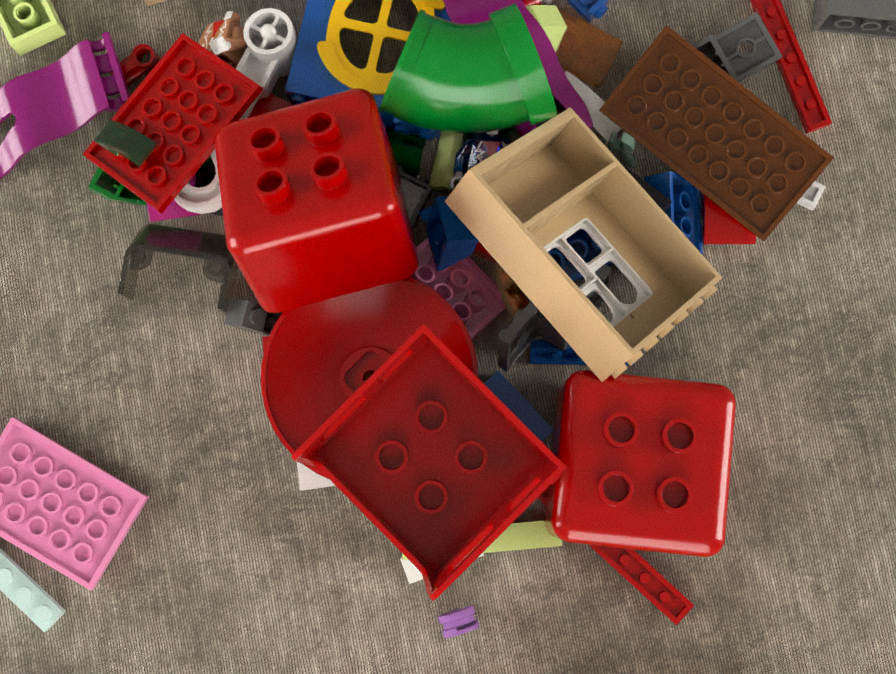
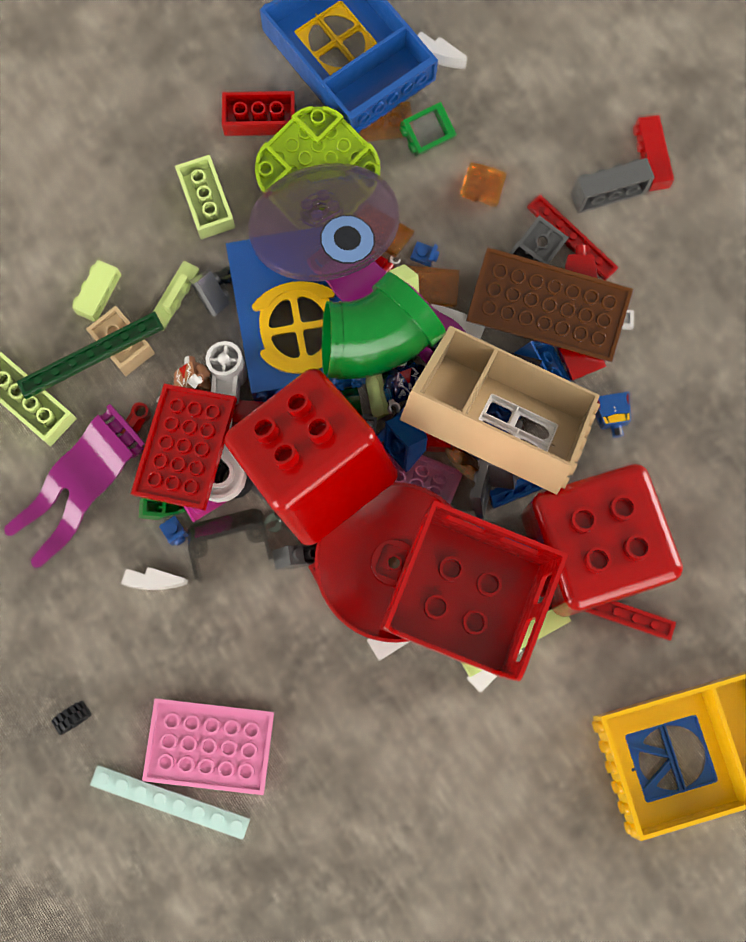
camera: 30 degrees left, 5 degrees down
(70, 271) = (152, 580): none -> white slope
(123, 223) = (173, 531): none -> blue bracket
(126, 141) = (160, 471): clear green slope -> none
(458, 617) = (522, 702): medium lavender wheel -> none
(624, 146) = (492, 338): sand green bar -> none
(737, 306) = (614, 412): none -> blue torso
(784, 96) = (581, 262): none -> red torso

